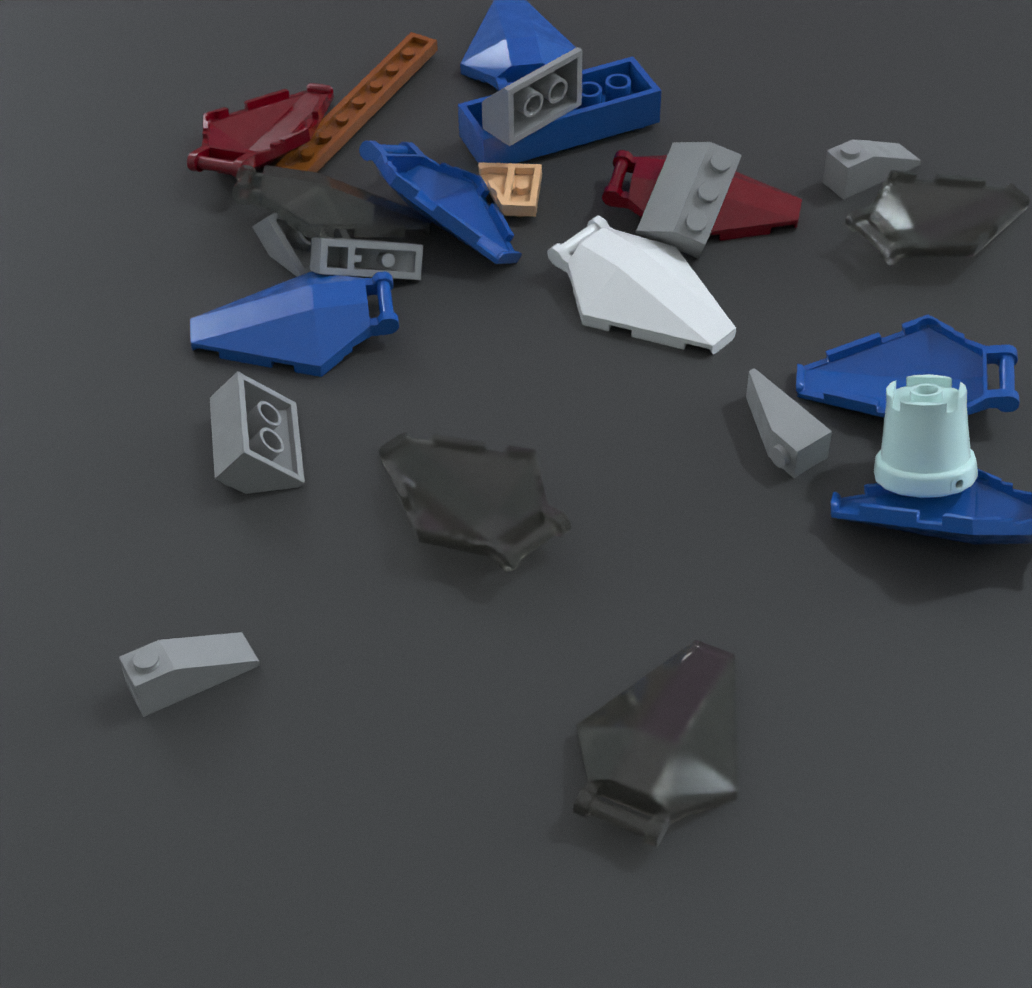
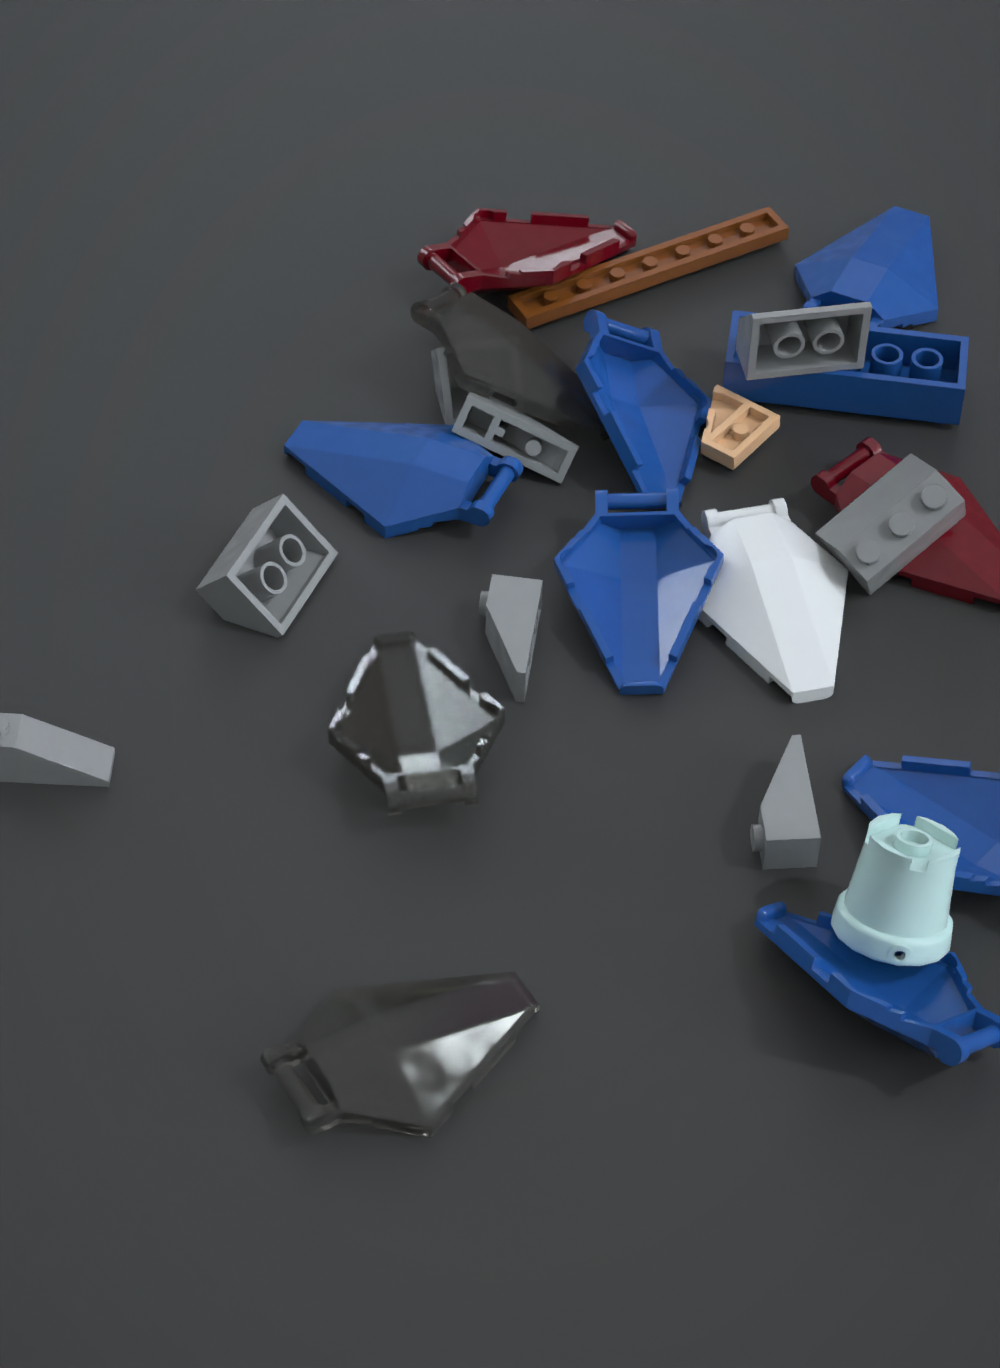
camera: 30 degrees right, 0 degrees up
(481, 395) = (512, 625): none -> light grey slope
(547, 320) = (639, 585): none -> blue windscreen

